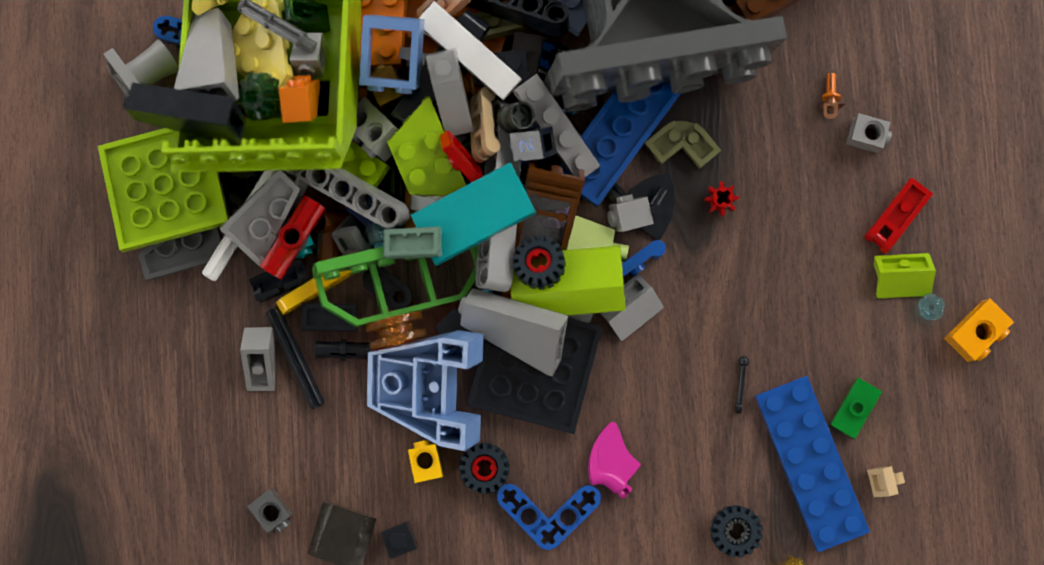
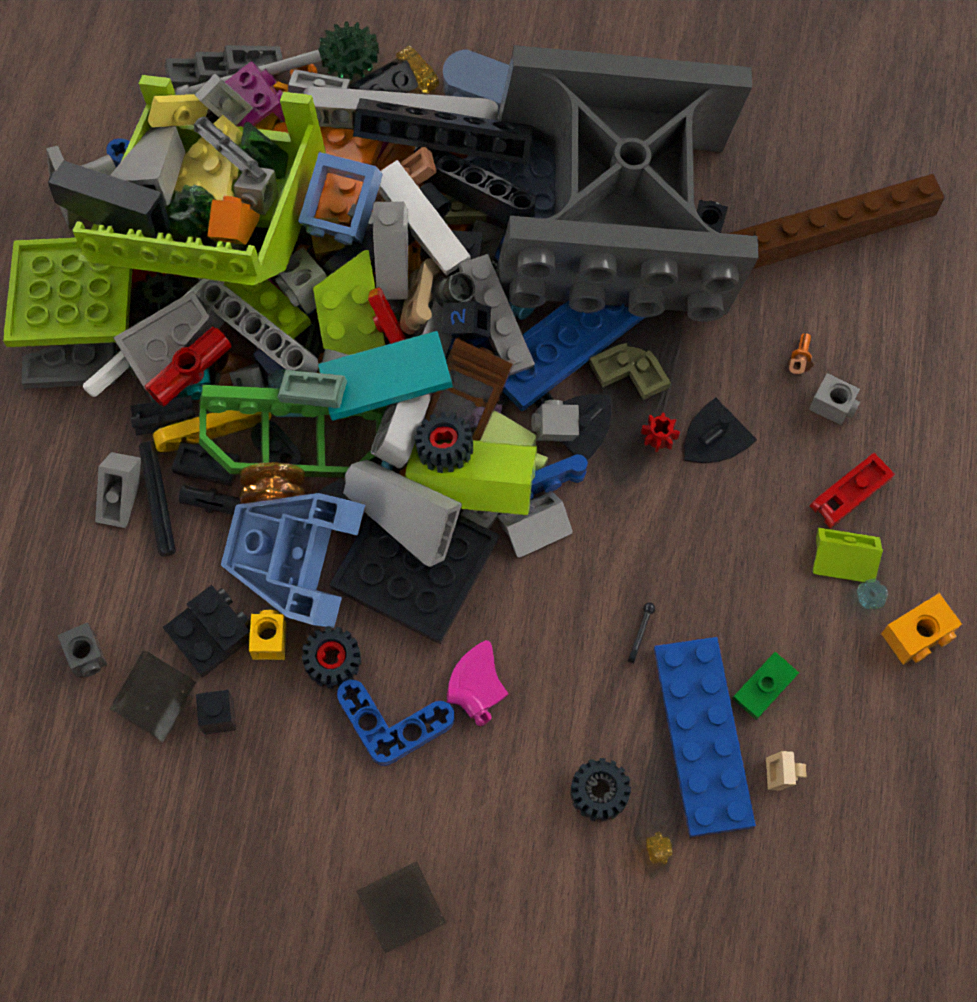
camera: 15 degrees right, 15 degrees down
(373, 467) = (209, 630): none -> black plate
(769, 187) = (715, 435): none -> black shield

